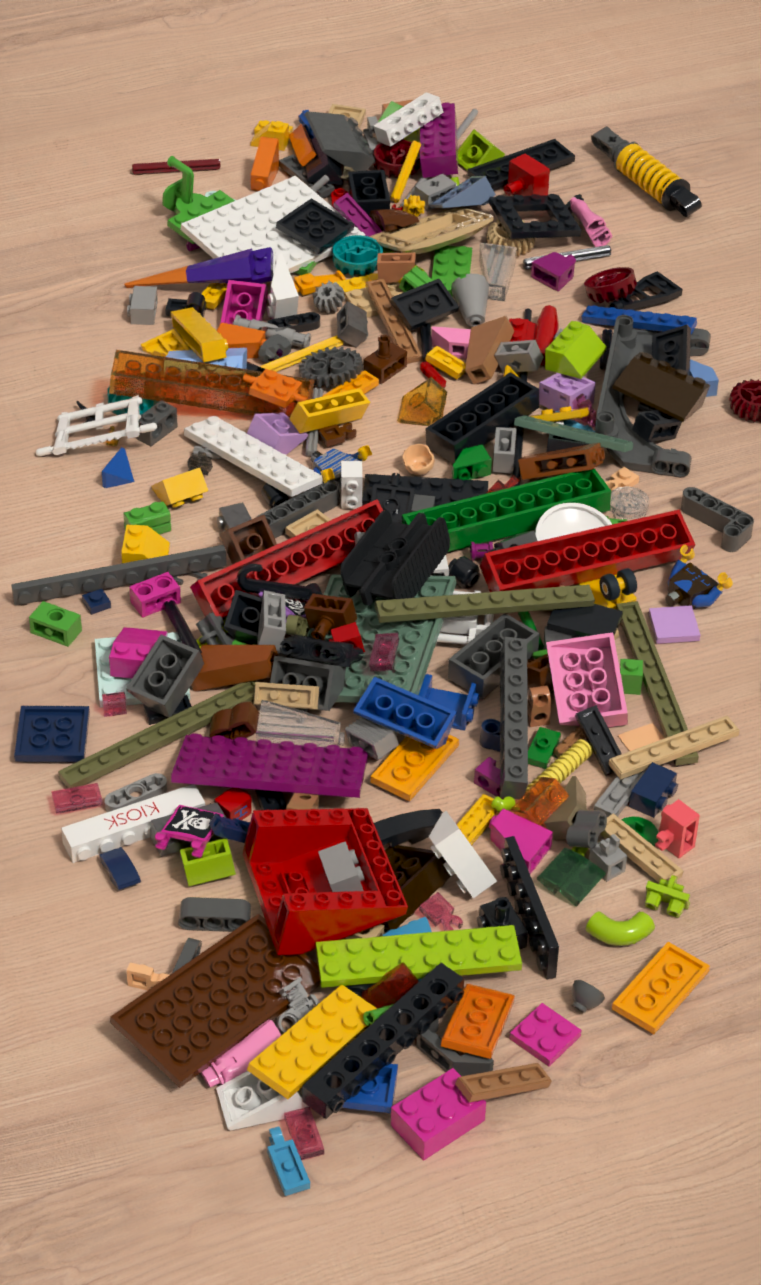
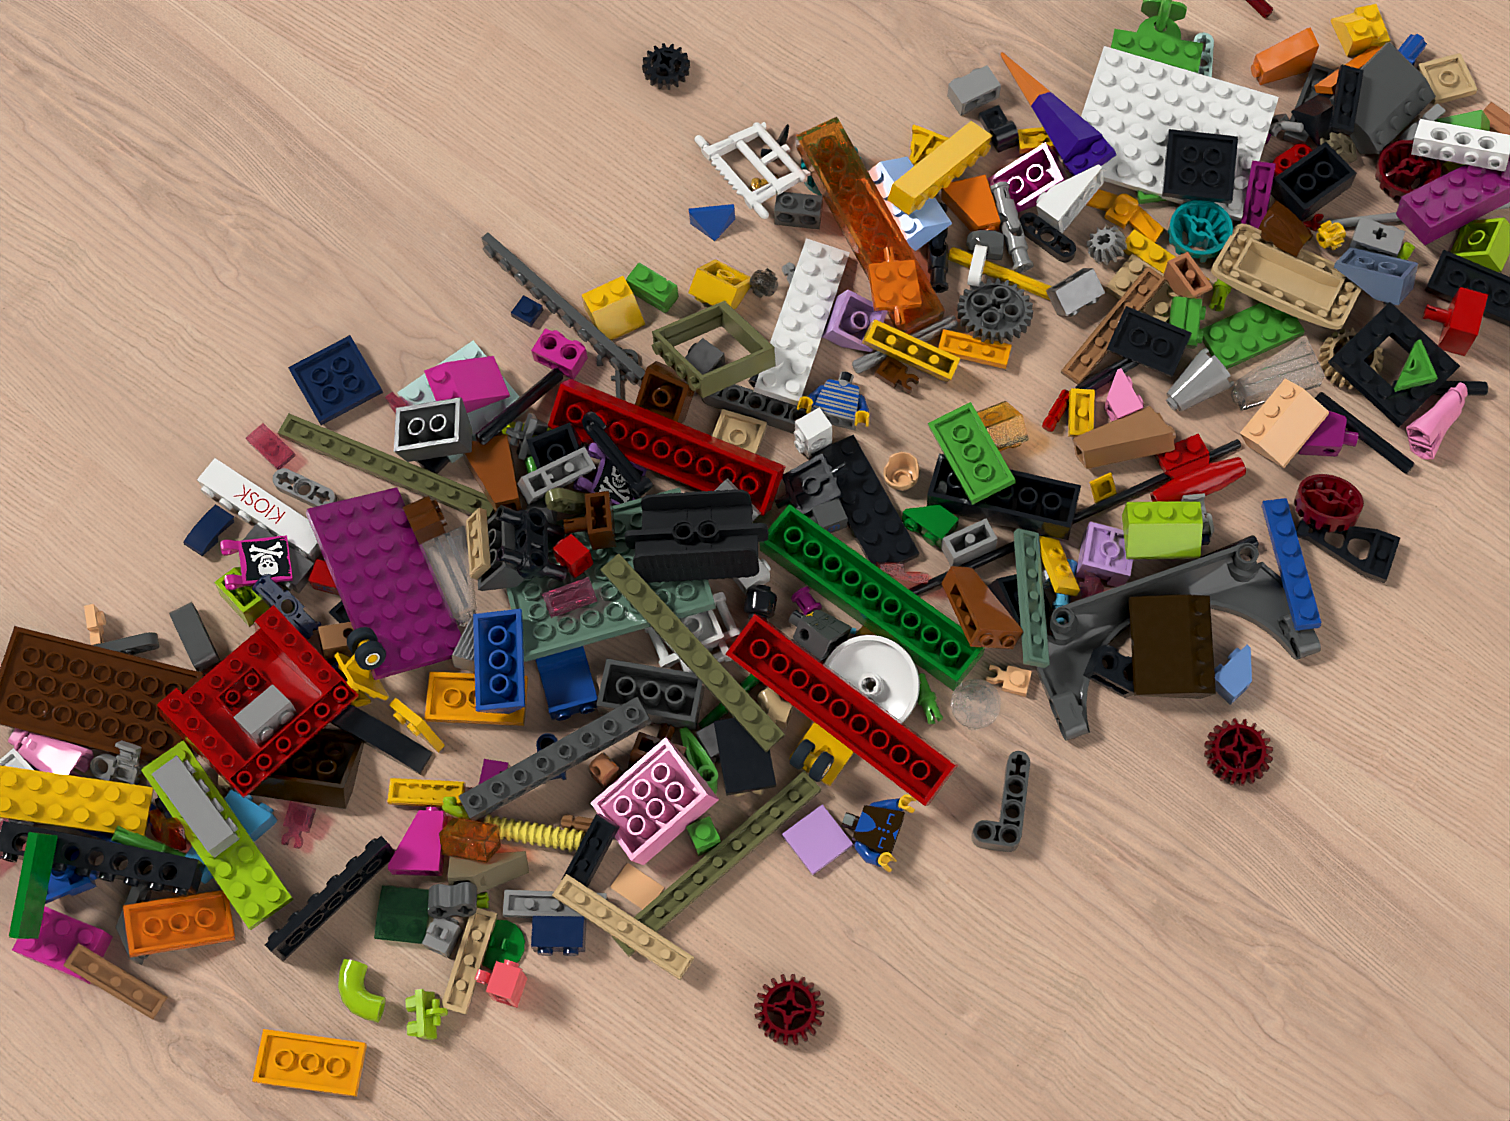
camera: 65 degrees right, 25 degrees up
(55, 623) = (468, 285): bright green brick -> none
(238, 480) = (701, 322): none -> olive window
(290, 355) = (977, 265): none -> white beam
(331, 143) = (1346, 99): none -> black tile
(338, 780) = (367, 656): none -> plate
(386, 360) = (1040, 355): reddish brown brick -> none
(390, 1070) = (33, 886): none -> green tile
(391, 943) = (196, 806): none -> light grey brick
(405, 171) = (1380, 193): yellow axle -> none
(410, 798) = (415, 724): none -> yellow wing
(442, 406) = (971, 453): none -> bright green plate
(460, 857) = (352, 806): white slope -> none
(502, 914) = (307, 880): black brick -> none
(519, 355) = (1129, 477): light grey brick -> none
(537, 276) = (1284, 423): none -> light nougat slope
(542, 747) = (564, 802): green plate -> none
(545, 1034) = (206, 987): dark pink plate -> none
(548, 204) = (1417, 369): none -> bright green tile
(585, 996) = (263, 1000): dark grey brick -> none
(673, 347) = (1243, 627): black plate -> none

